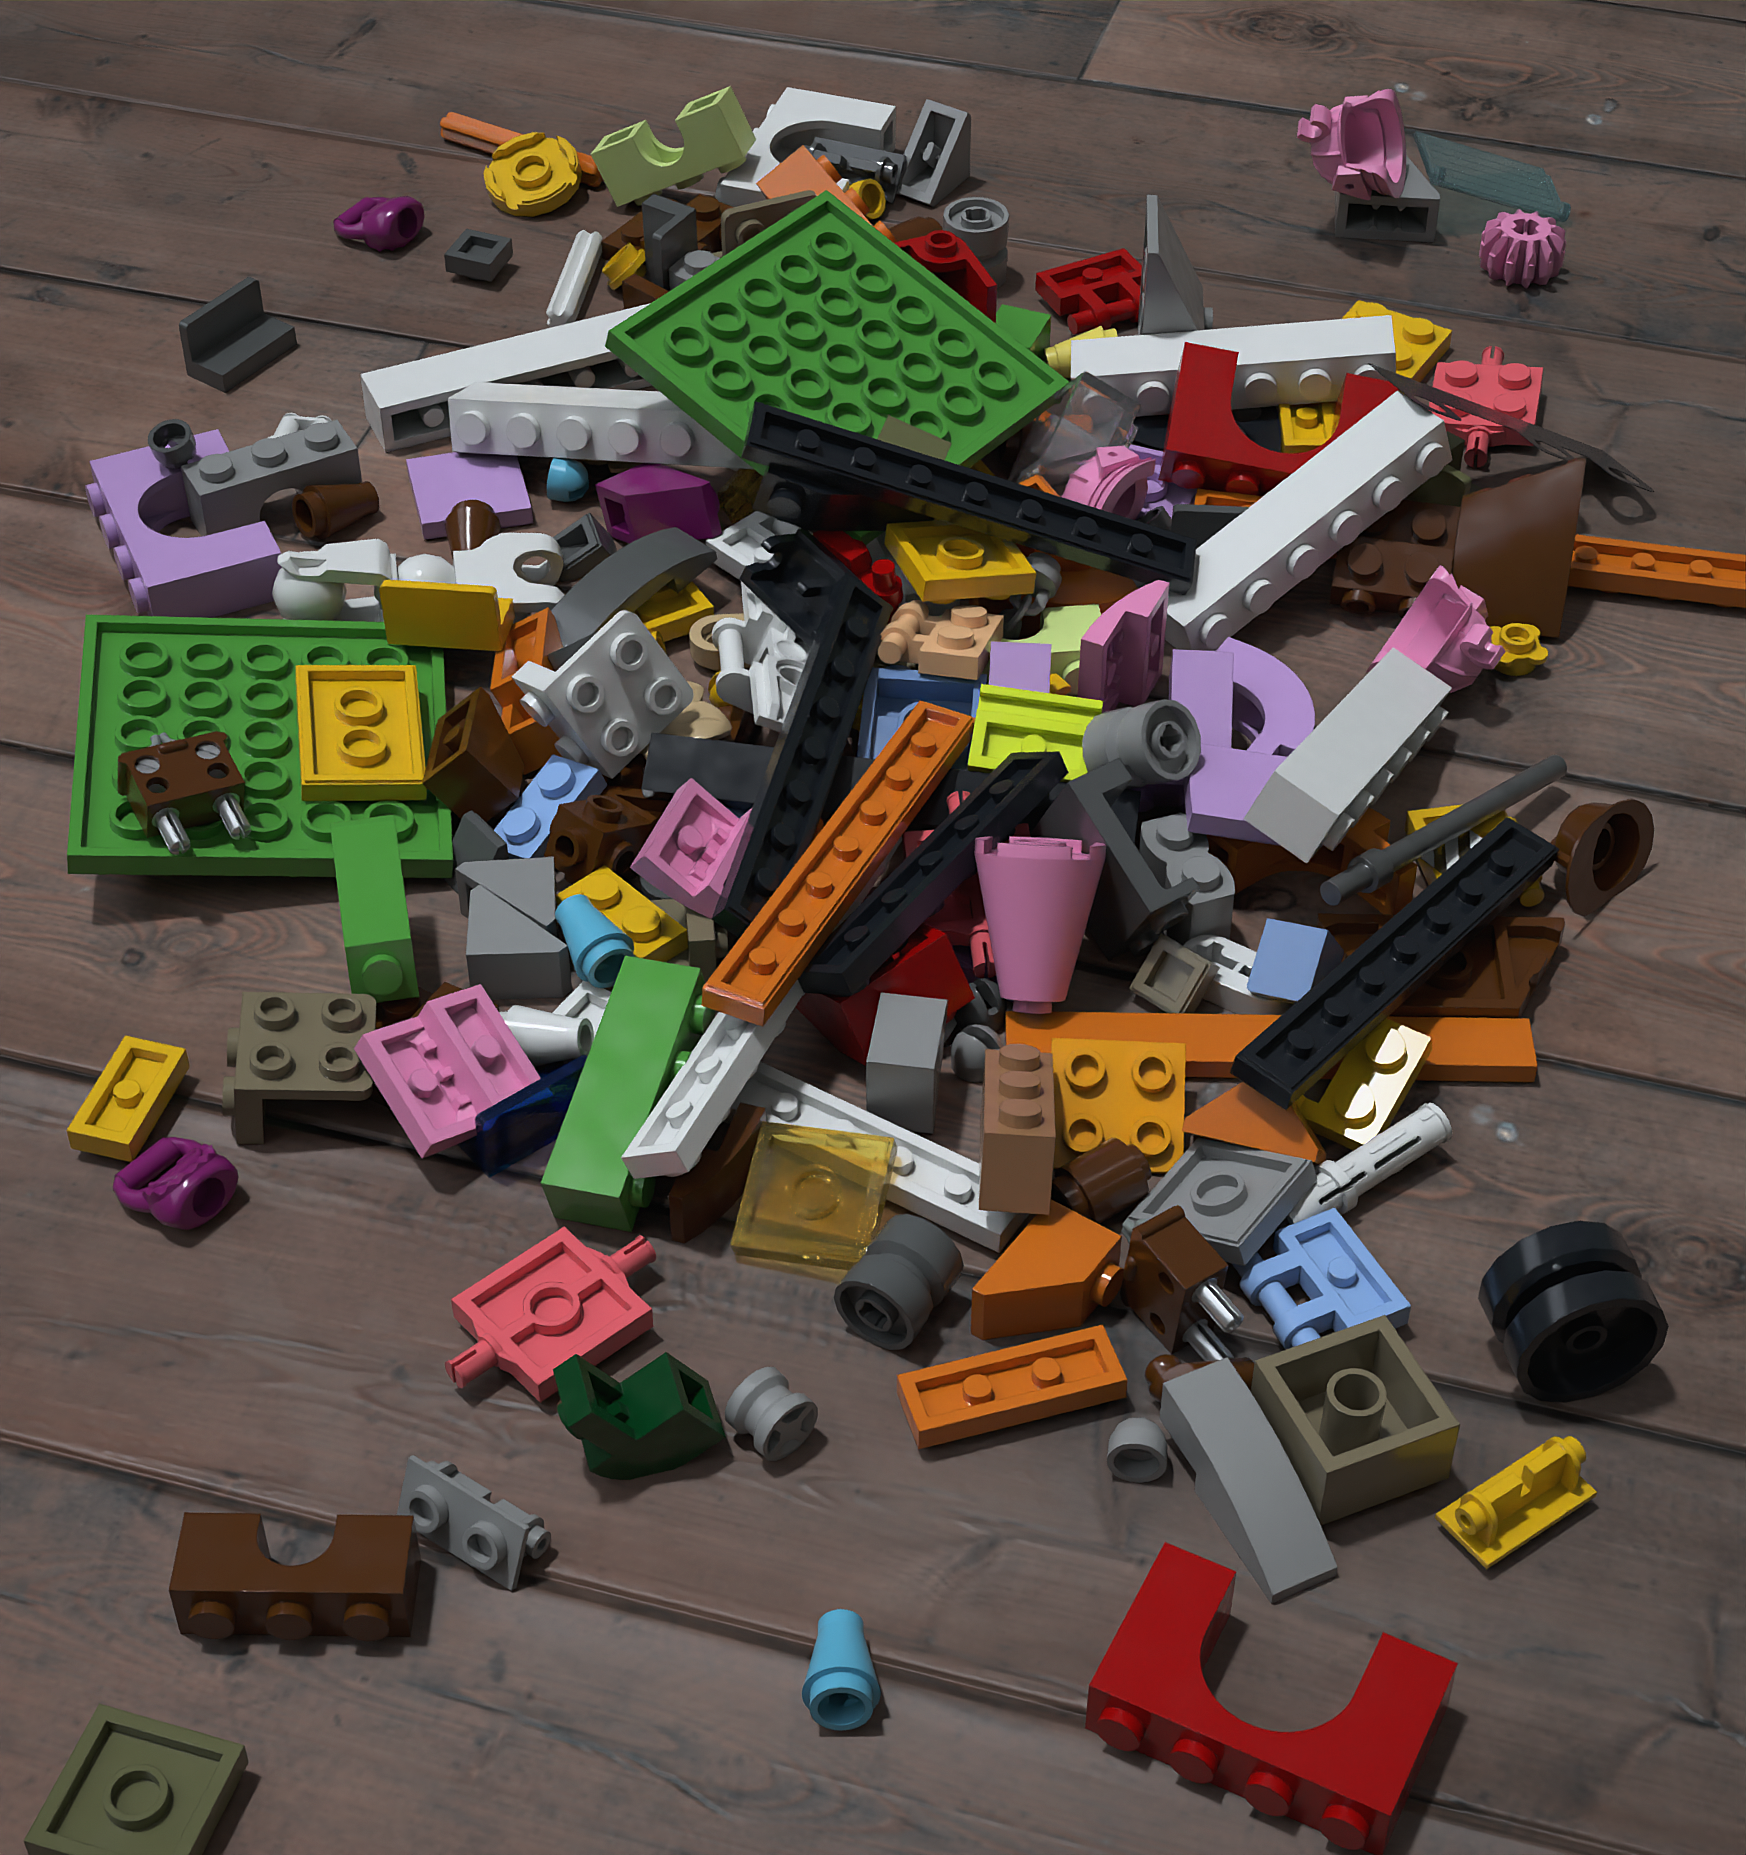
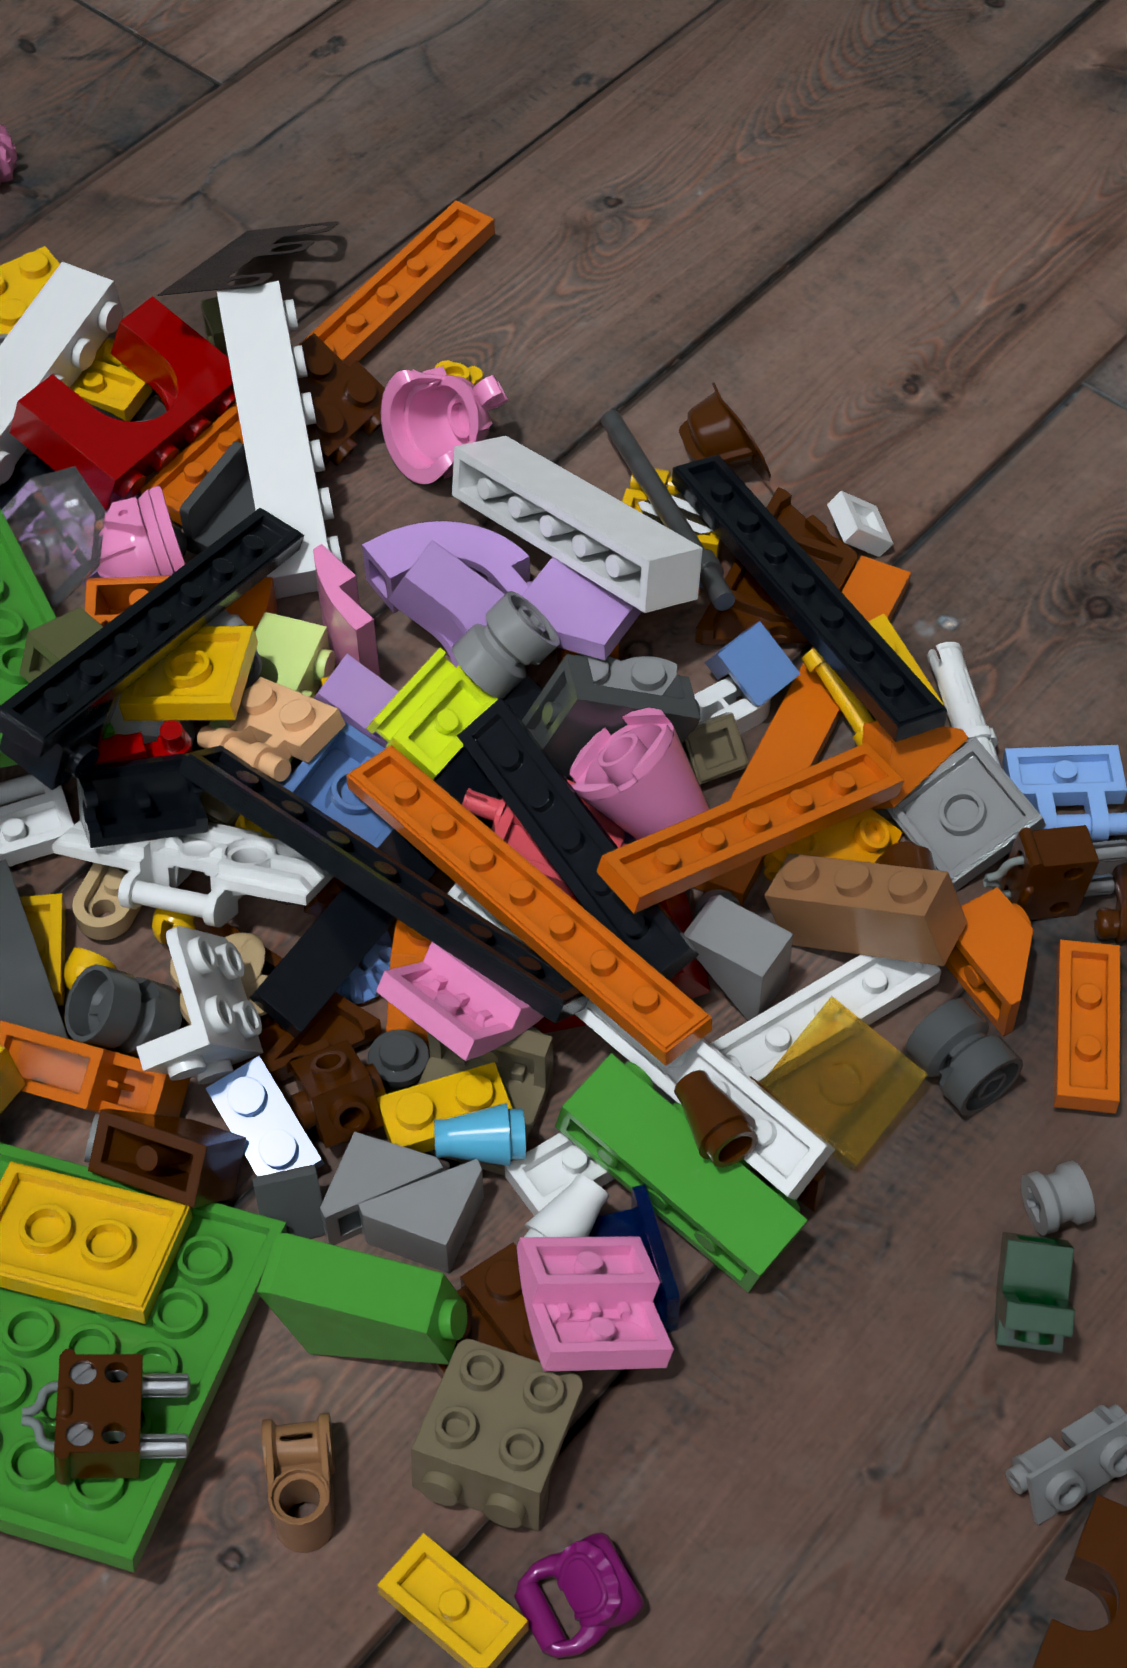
camera: 65 degrees left, 10 degrees up
(206, 958) = (299, 1470): none -> medium nougat piece
(550, 1307) = (879, 1325): coral plate -> none
(662, 1067) = (717, 1122): none -> reddish brown cone
(1034, 985) = (748, 827): none -> orange plate
(1504, 388) = (147, 262): coral plate -> none
(1519, 546) = (379, 314): reddish brown slope -> none
(1570, 1002) = (860, 524): none -> white tile

